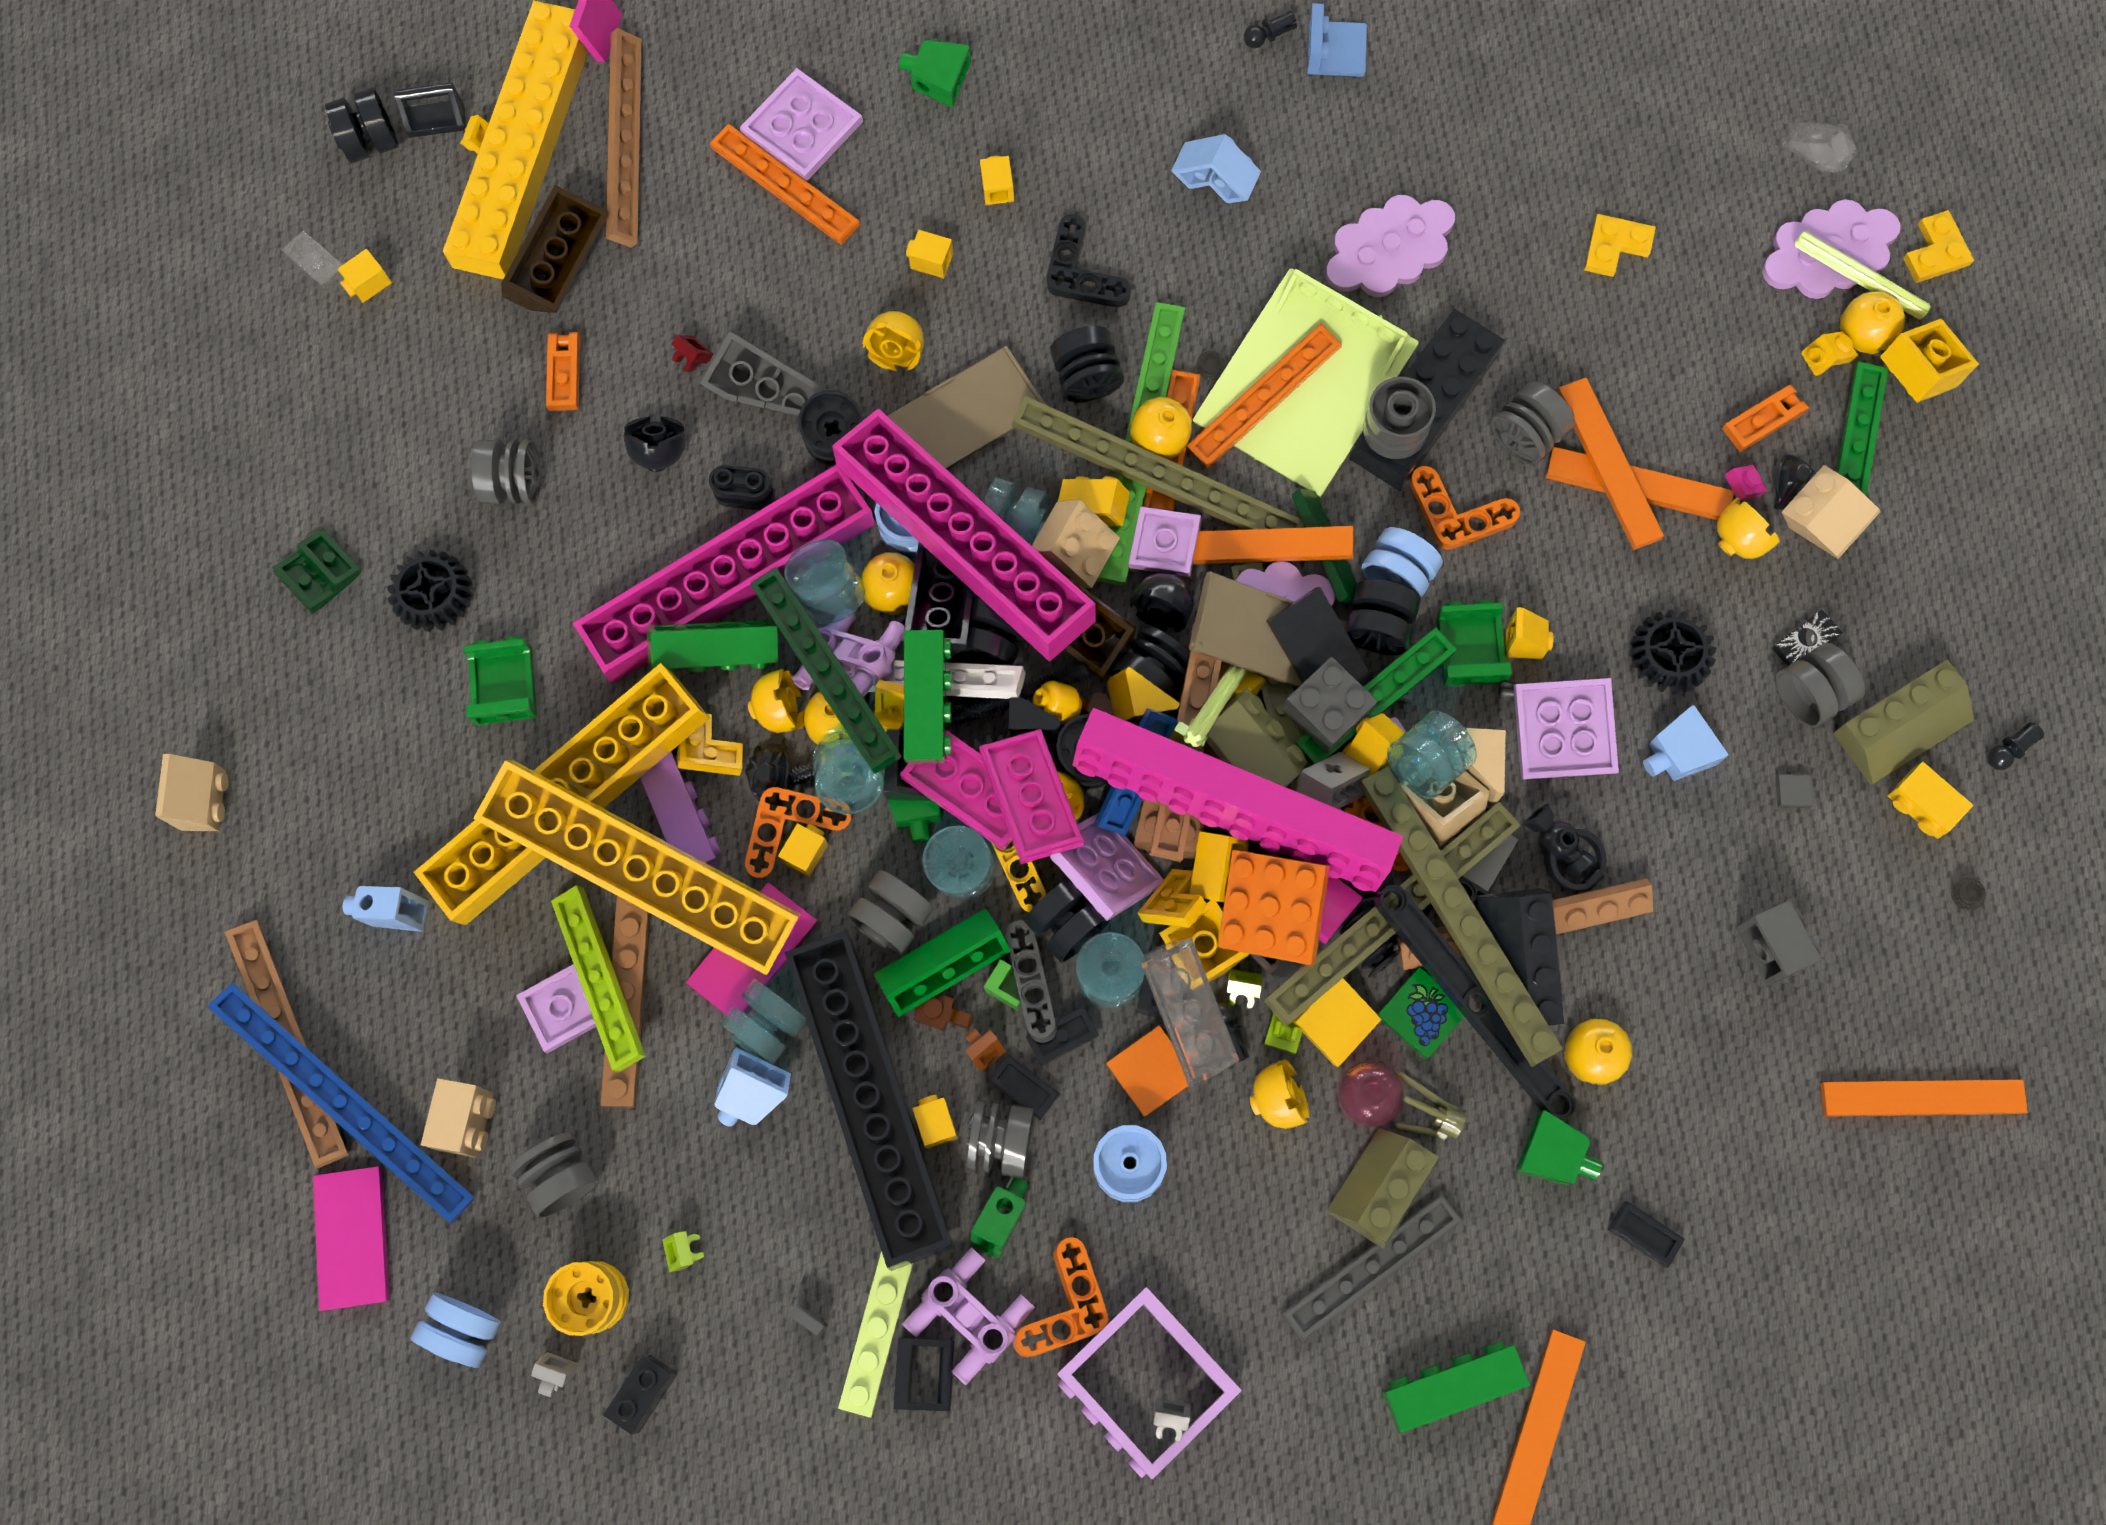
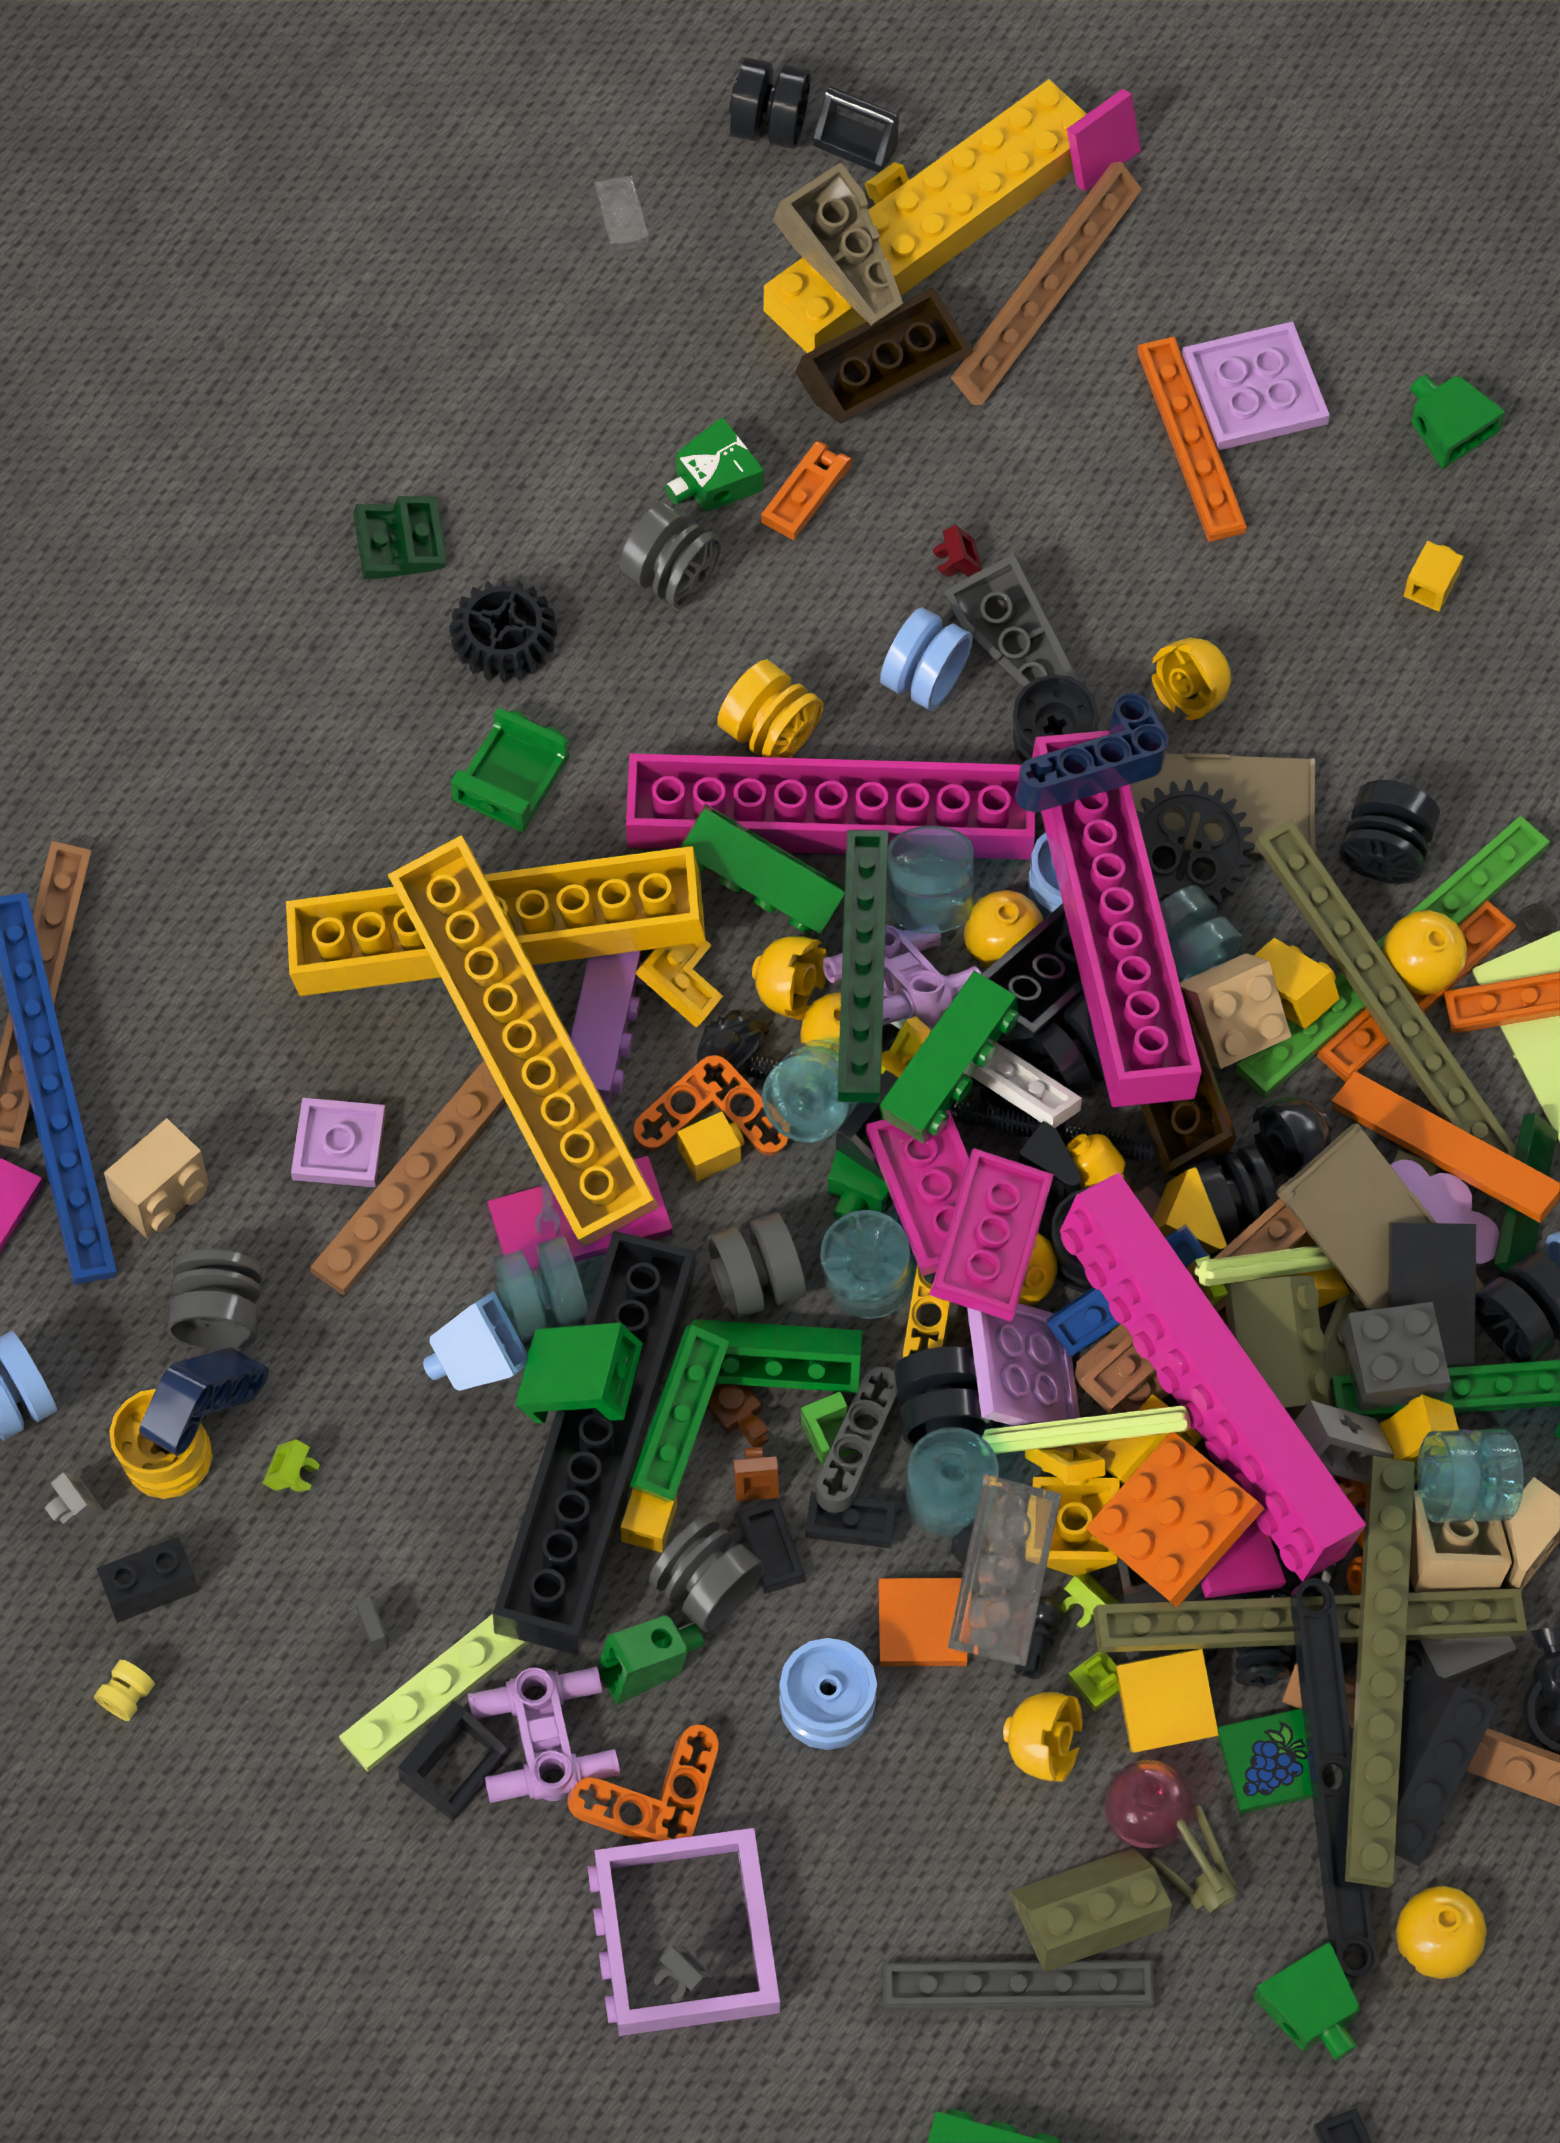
camera: 30 degrees right, 10 degrees down
(191, 793) = (115, 680): tan slope -> none
(363, 276) = (661, 262): yellow brick -> none
(387, 908) = (233, 923): light blue torso -> none
(470, 190) = (836, 236): none -> dark tan wedge
(495, 394) = (715, 469): none -> green torso
(589, 1251) = (197, 1389): none -> dark blue beam
(598, 979) = (399, 1134): lime plate -> none
(644, 536) = (770, 712): none -> yellow wheel
(654, 443) = (849, 624): black cylinder -> none
(678, 1487) = (124, 1690): none -> light yellow wheel
(719, 435) = (926, 659): none -> light blue wheel
(730, 964) = (547, 1210): none -> clear light blue hand
(741, 487) = (911, 727): black brick -> none
(829, 1064) = (579, 1370): none -> green panel
(861, 471) = (1124, 757): none -> dark blue beam
(912, 1047) = (679, 1413): none -> green plate
(930, 253) = (1300, 609): yellow brick -> none
(995, 446) = (1222, 856): none -> black gear
(1069, 270) = (1448, 724): black beam -> none
(1165, 541) = (1341, 1075): lavender plate -> none
(1177, 883) = (1088, 1429): none -> yellowish green axle

